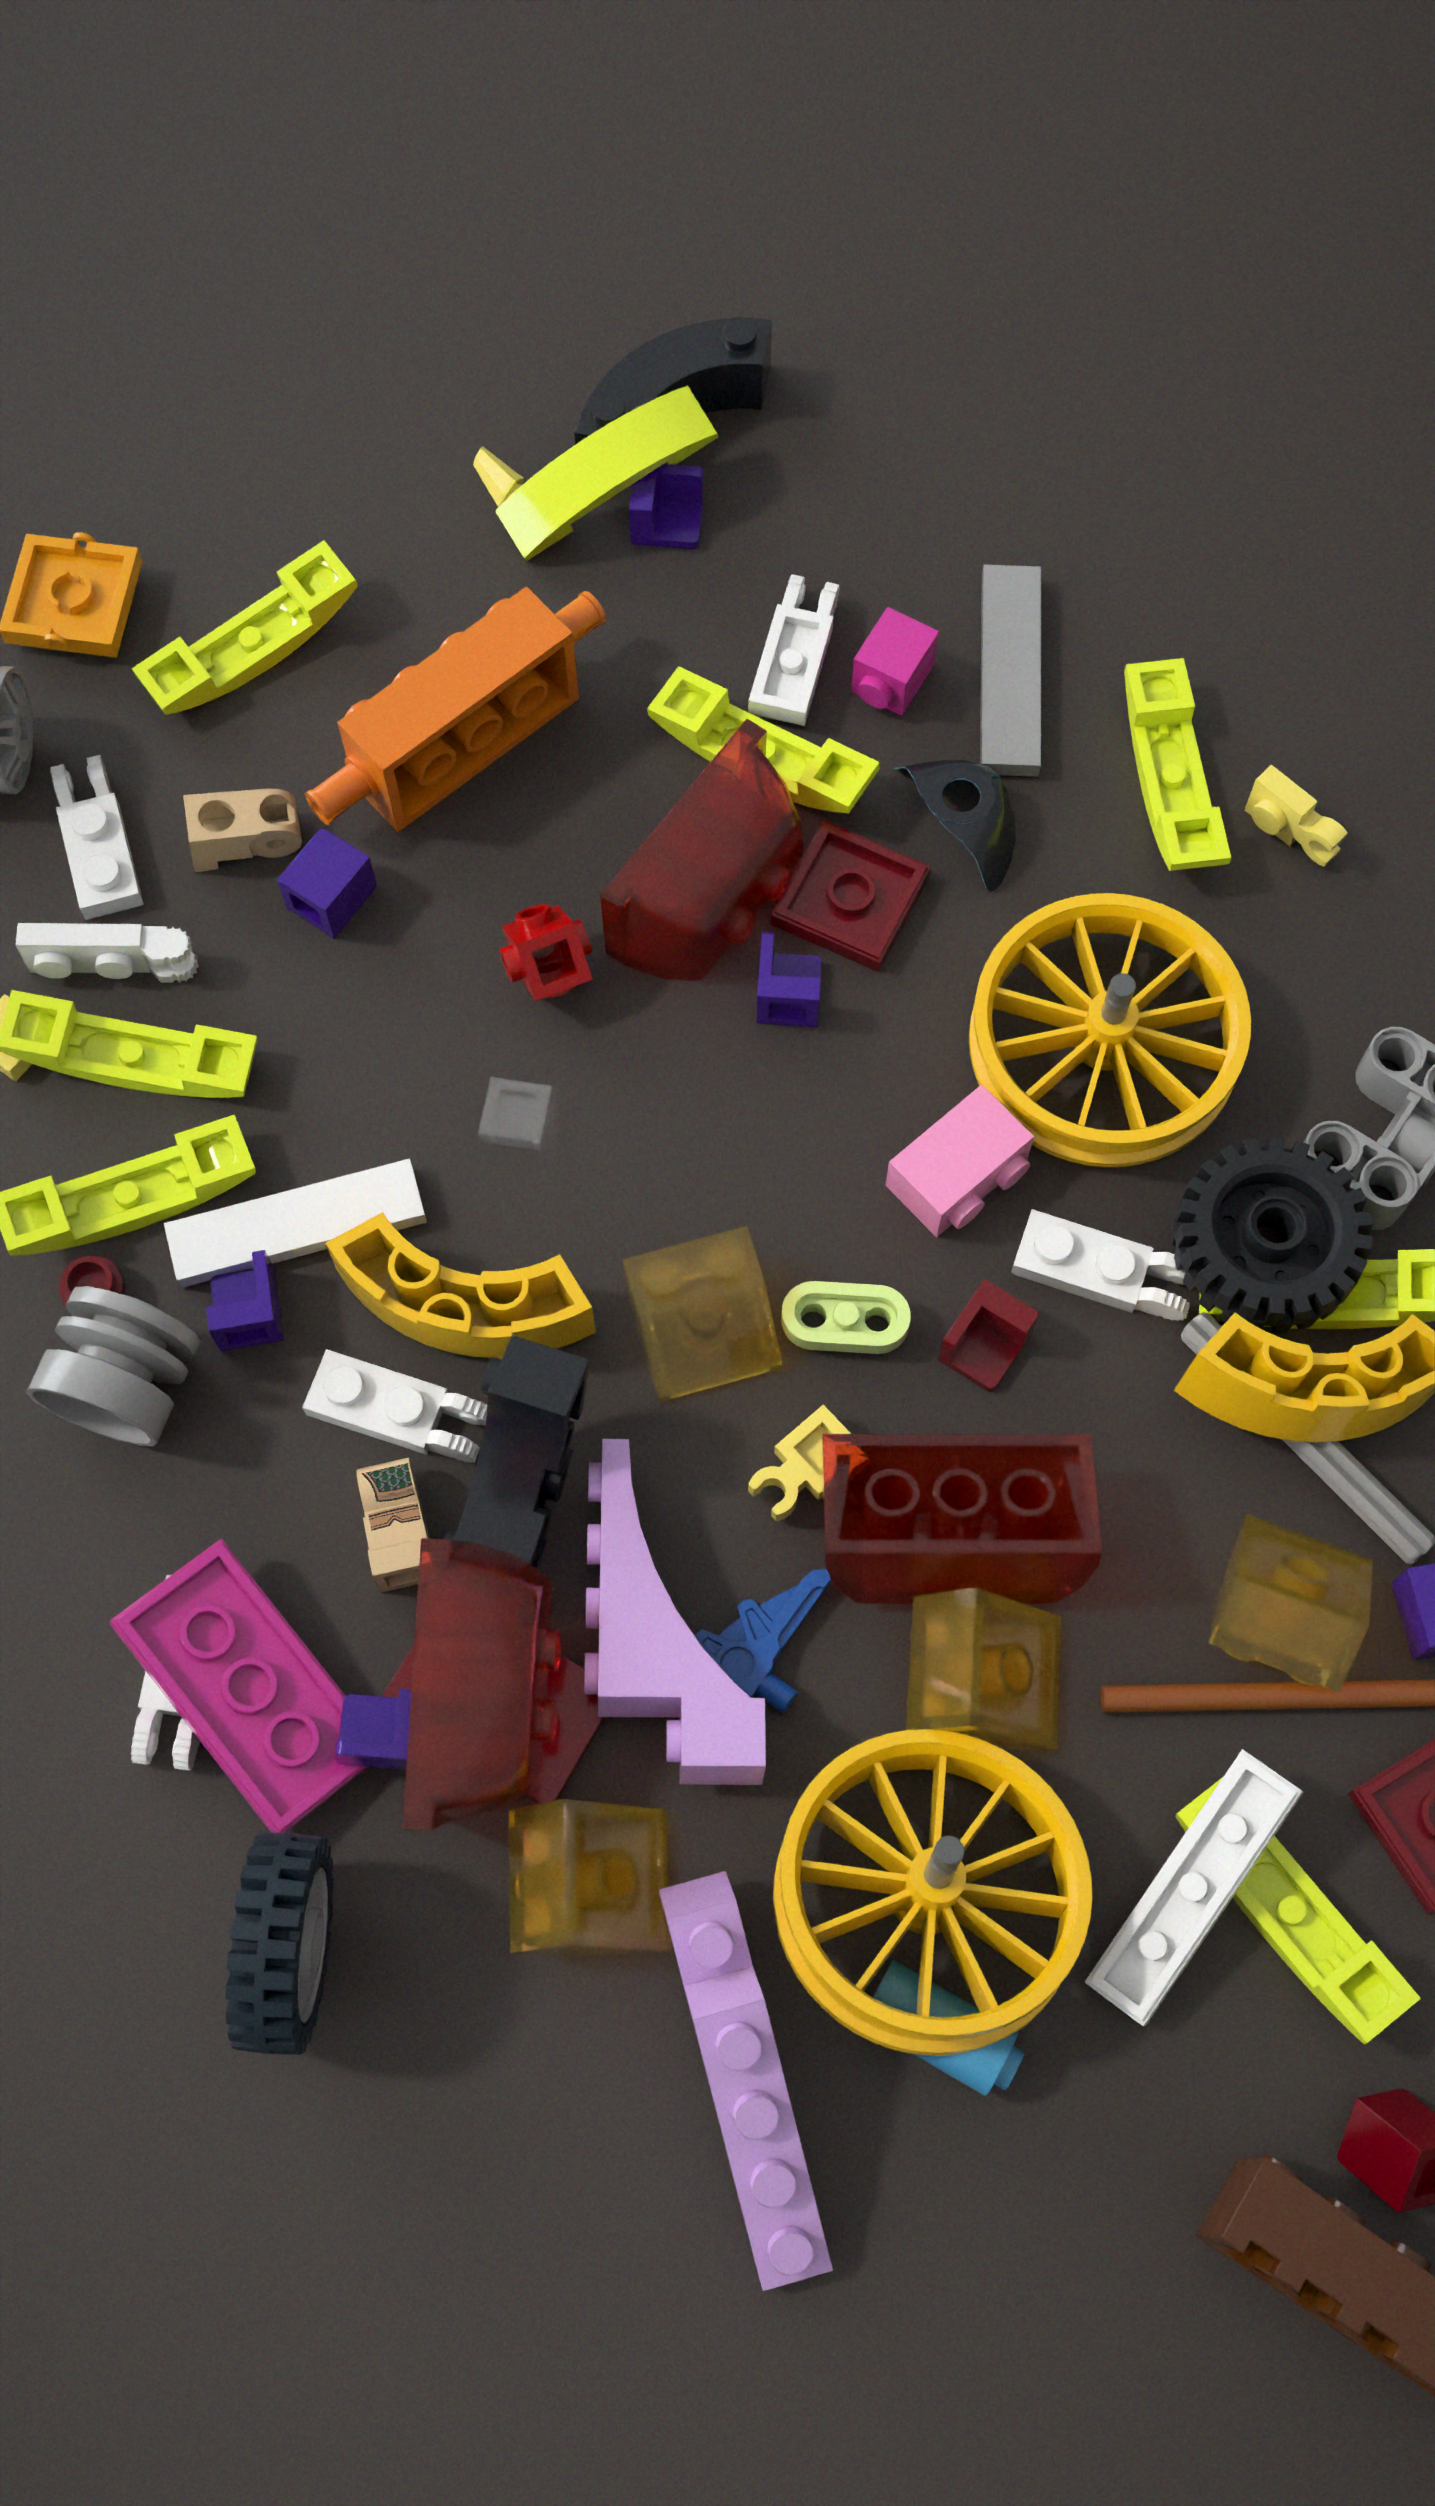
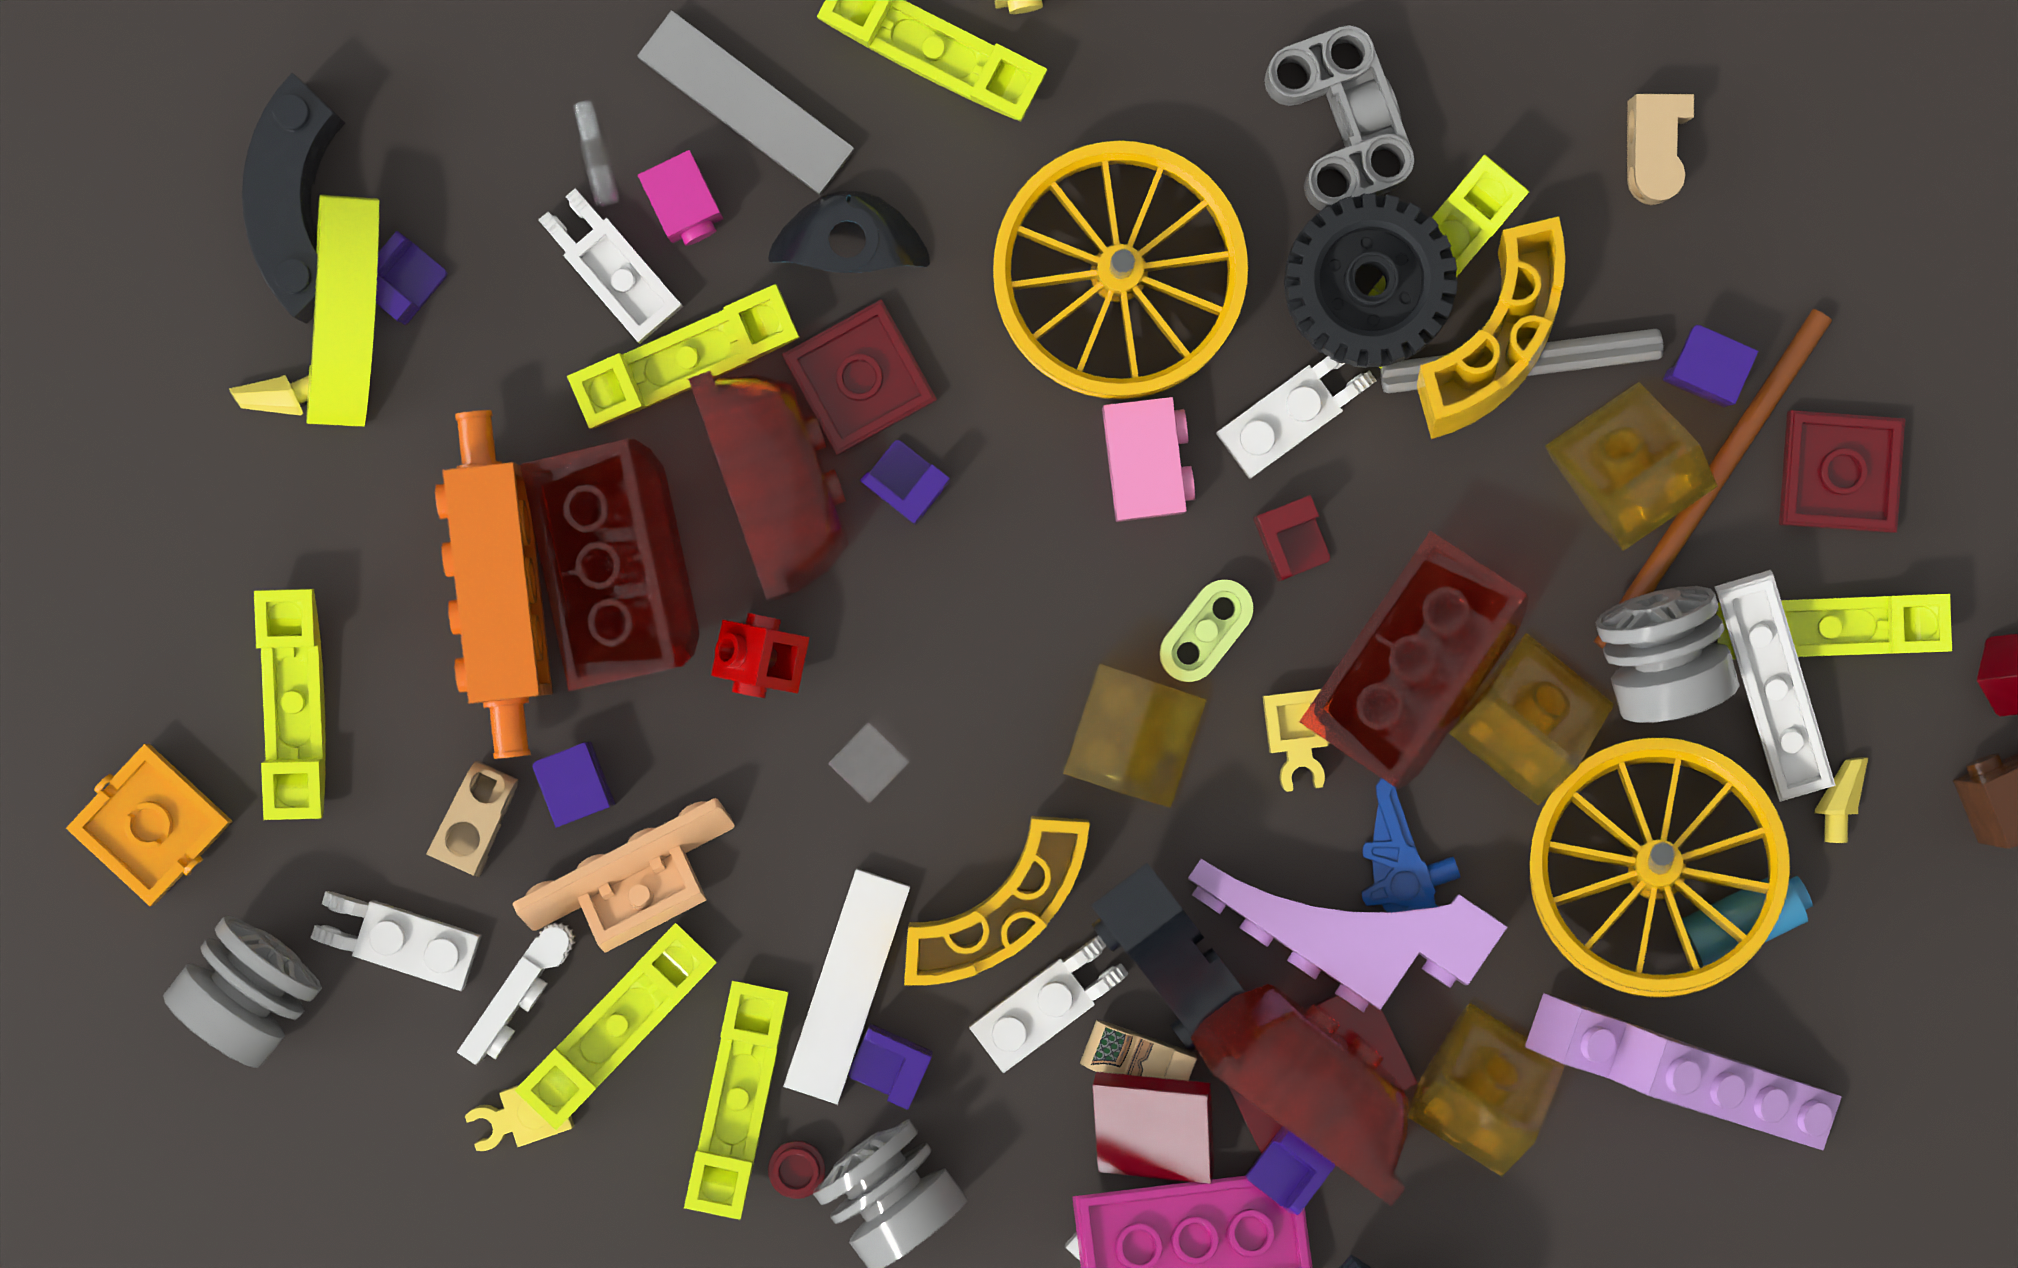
camera: 55 degrees left, 20 degrees up
(274, 981) = (633, 884): none -> light nougat bracket
(337, 1569) = (1153, 1127): none -> tile
(548, 782) = (612, 562): none -> clear red windscreen
(876, 590) = (595, 156): none -> clear pin
(1133, 2049) = (1842, 799): none -> light yellow bar
(1146, 1744) = (1667, 654): none -> light grey wheel

